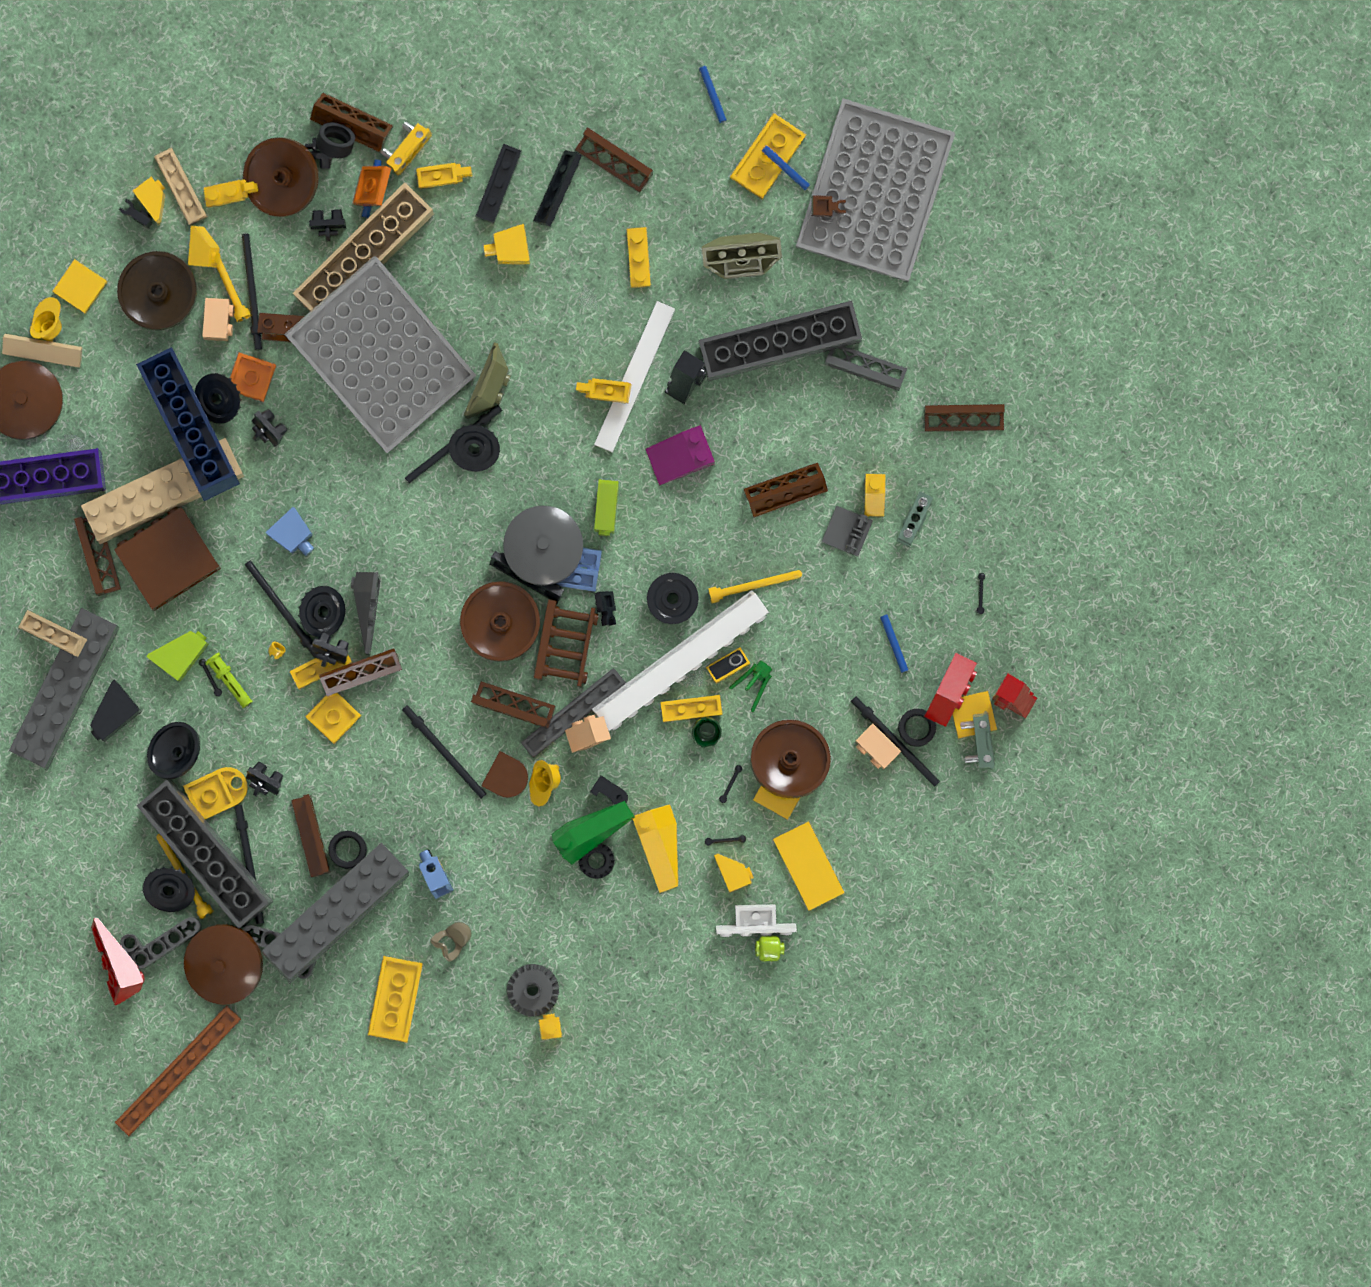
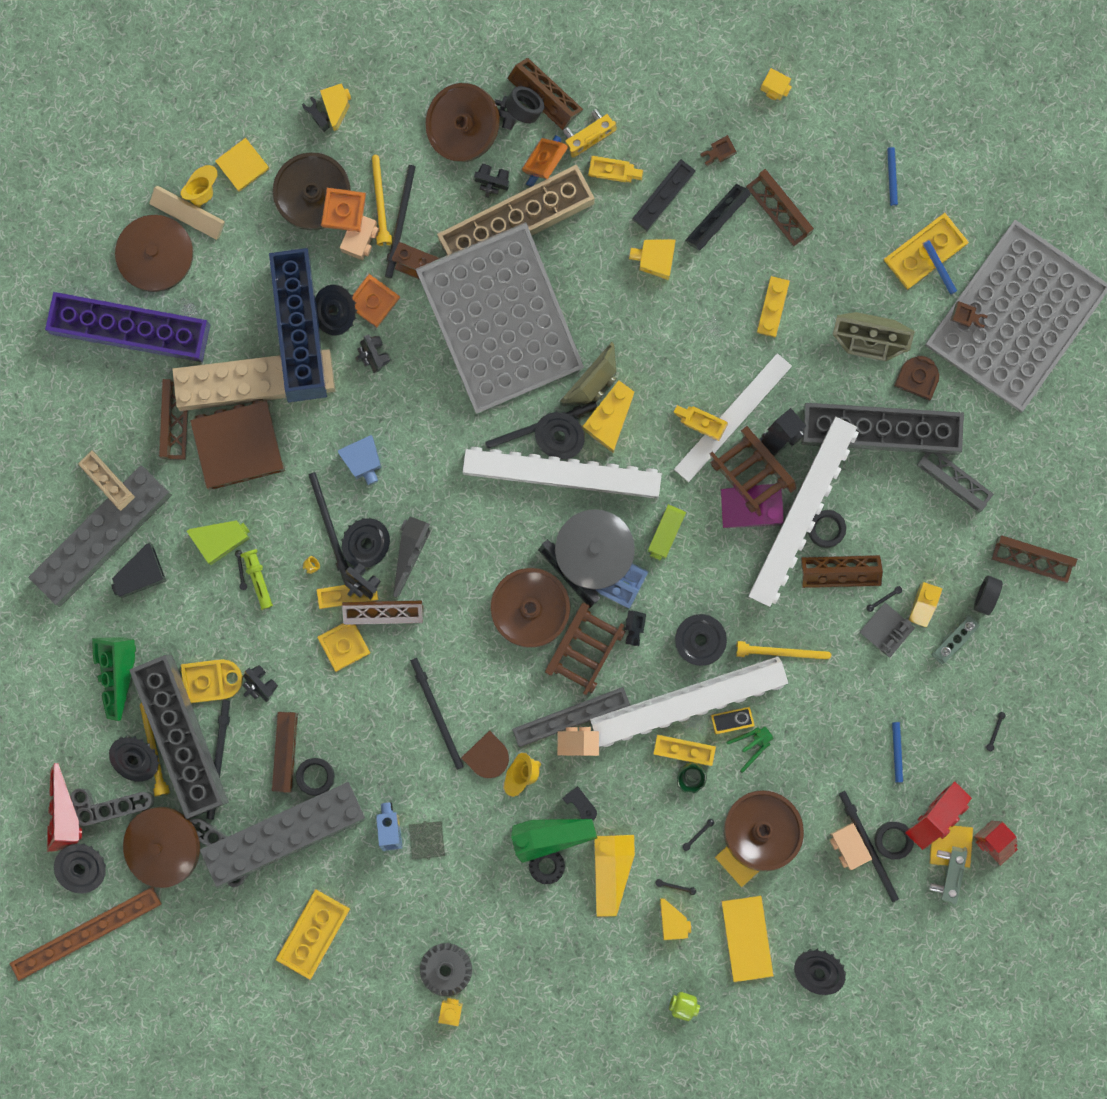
camera: 20 degrees right, 0 degrees up
(120, 803) = (115, 659): none -> green wedge
(149, 1021) = (72, 876): none -> black gear
(168, 745) = (177, 623): black dish -> none
(180, 186) = (366, 102): tan tile -> none
(194, 299) = (343, 209): none -> orange tile
(203, 248) = (367, 166): yellow slope -> none
(228, 192) = (409, 122): yellow hinge -> none
(459, 933) = (394, 892): dark tan piece -> none
(474, 874) = (426, 840): none -> clear smoke piece
(489, 483) = (562, 473): none -> white brick
(509, 710) = (524, 705): reddish brown fence -> none
(516, 414) = (609, 416): none -> yellow wedge
(540, 121) = (722, 150): none -> reddish brown plate
(572, 42) = (776, 85): none -> yellow brick
(686, 412) = (760, 454): none -> reddish brown fence
(729, 445) = (802, 512): none -> white brick
(755, 920) = (681, 975): white bracket -> none
(758, 468) = (841, 532): none -> black tyre
(800, 279) = (918, 377): none -> reddish brown tile
(824, 515) = (897, 590): none -> black hinge
(886, 882) = (819, 972): none -> black gear
(931, 466) = (988, 595): none -> black tyre

